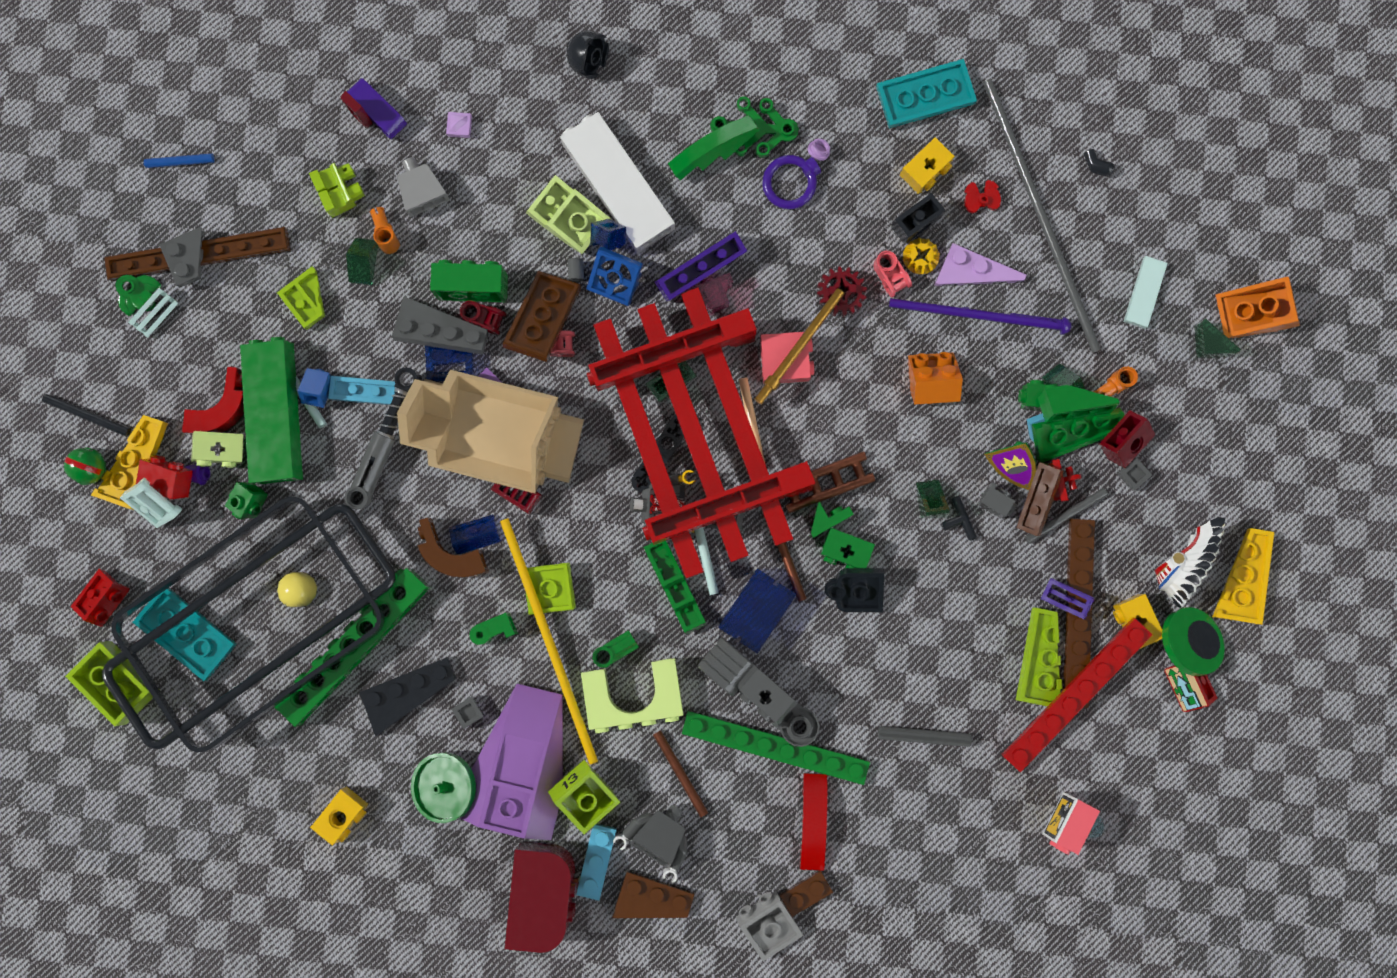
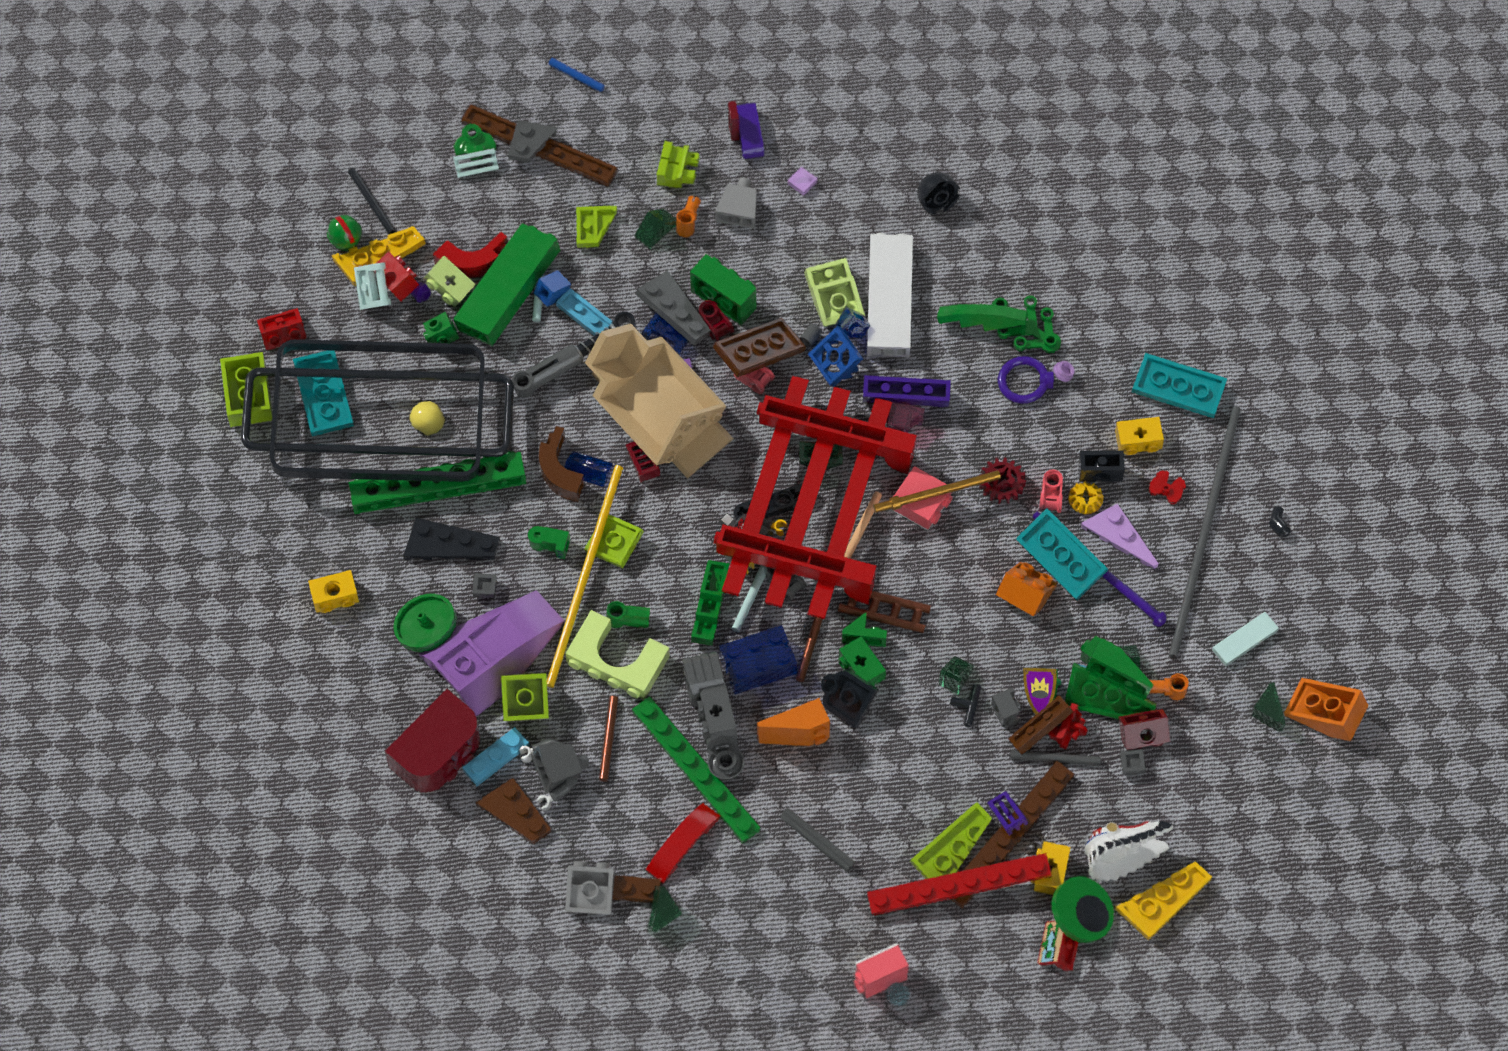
camera: 35 degrees right, 20 degrees down
(841, 648) = (798, 726): none -> orange slope
(847, 902) = (663, 910): none -> clear green slope
(942, 325) = (1062, 554): none -> teal plate

